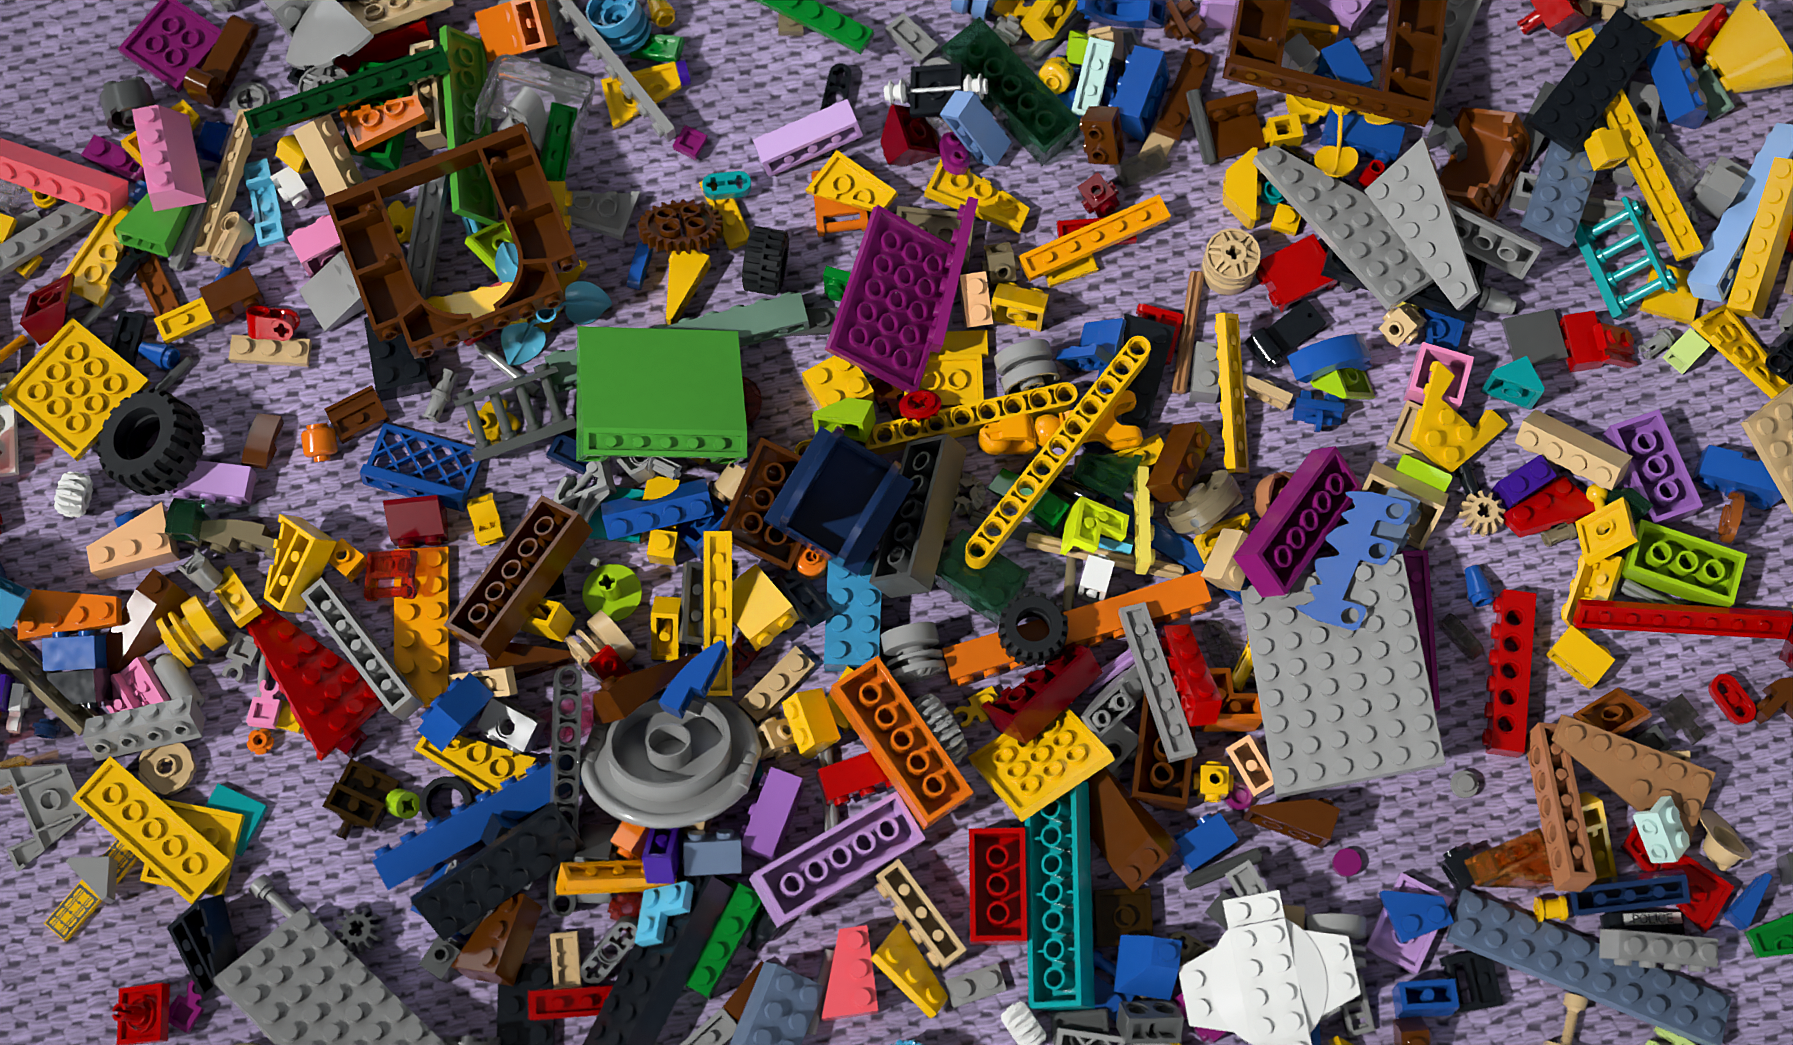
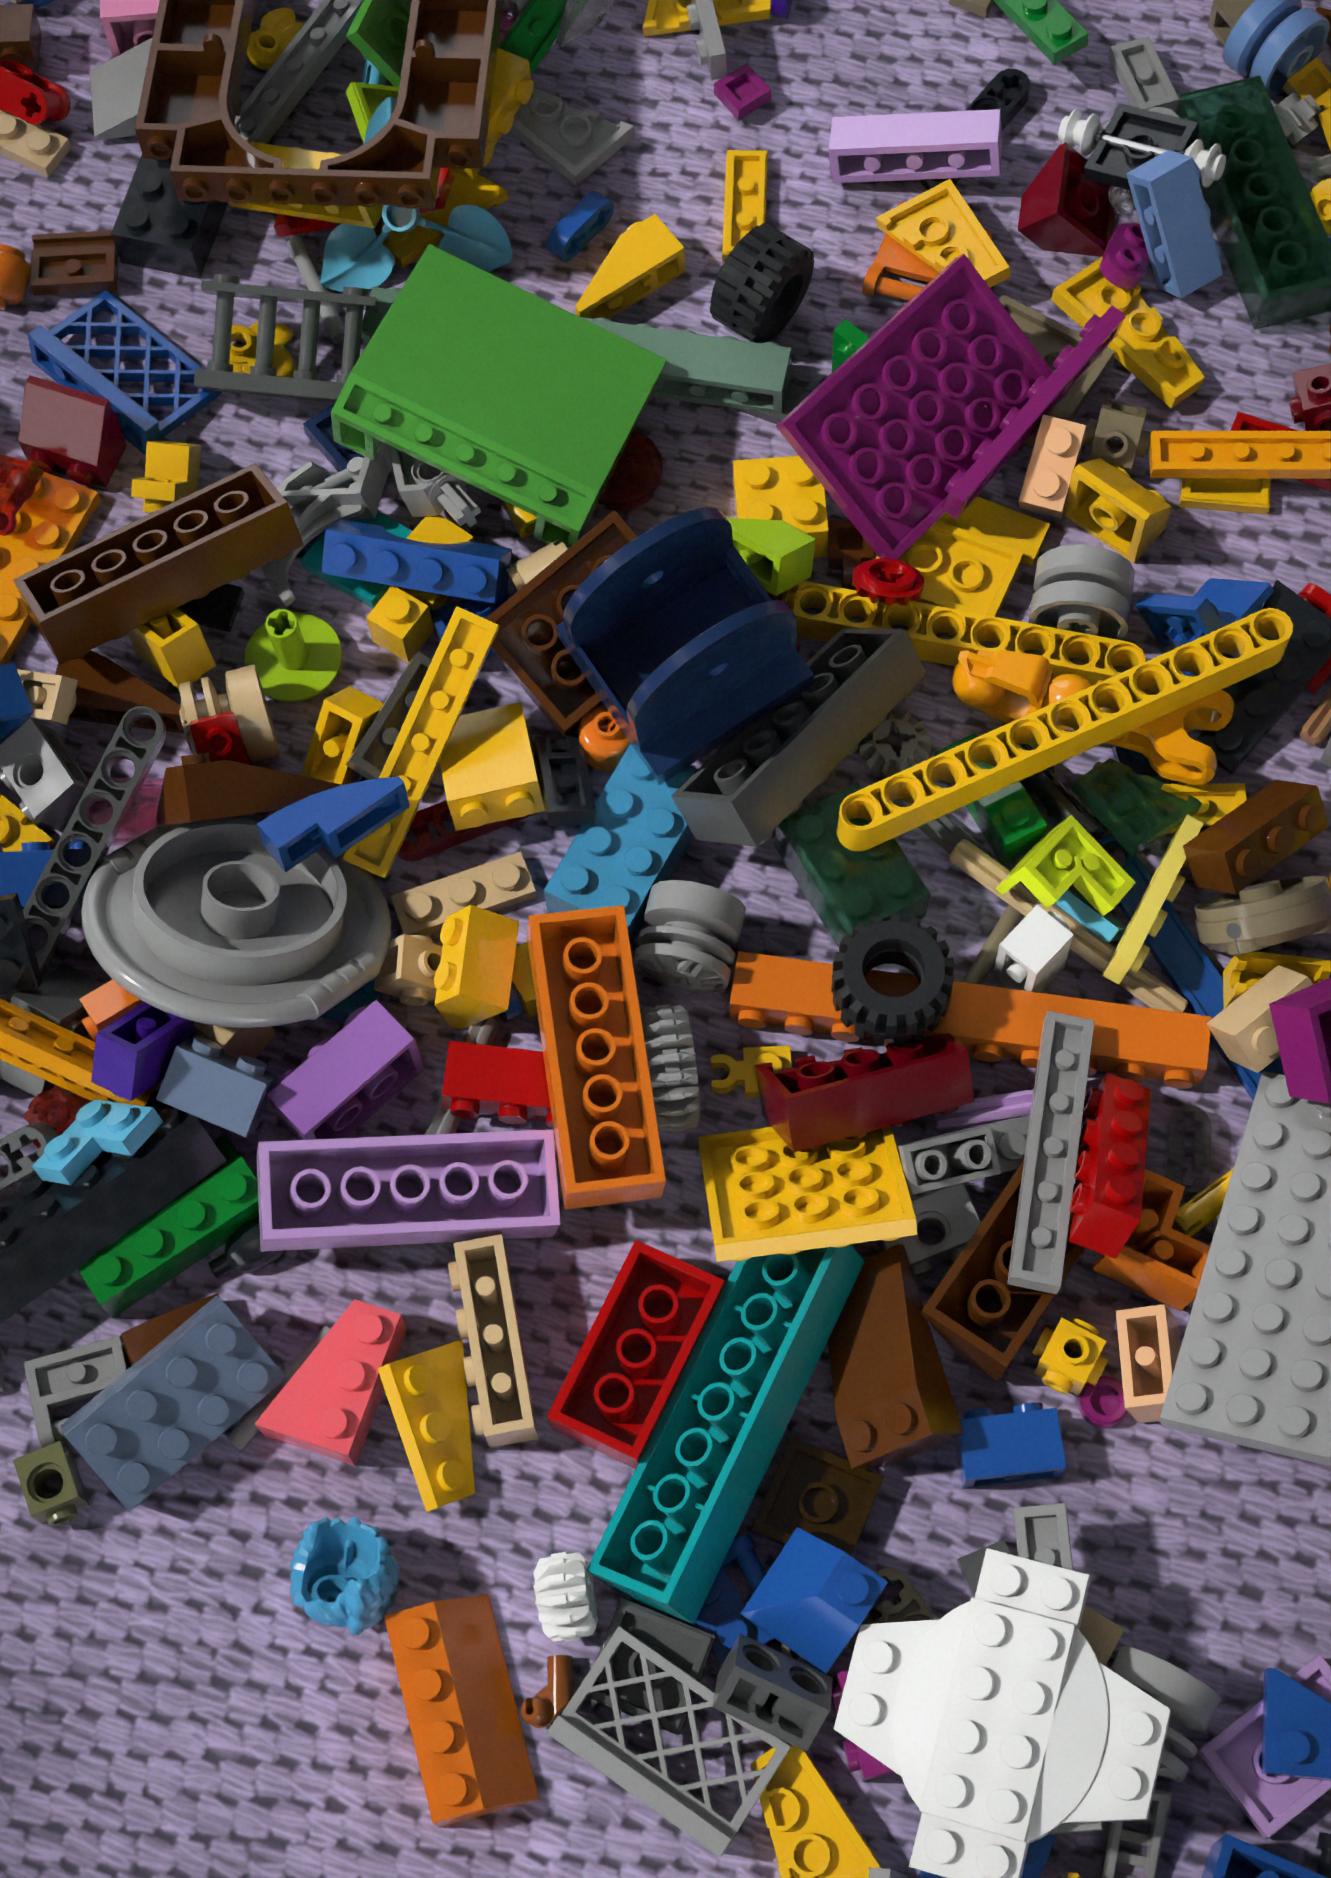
camera: 30 degrees right, 5 degrees down
(440, 395) = (191, 292): light grey pin -> none
(662, 228) = (637, 183): reddish brown gear -> none
(726, 185) = (763, 166): teal beam -> none
(975, 985) = (527, 1496): light grey plate -> none
(1219, 869) = (1000, 1503): dark grey axle -> none
(1302, 820) = (1185, 1482): reddish brown slope -> none
(1346, 862) = (1234, 1595): magenta tile -> none

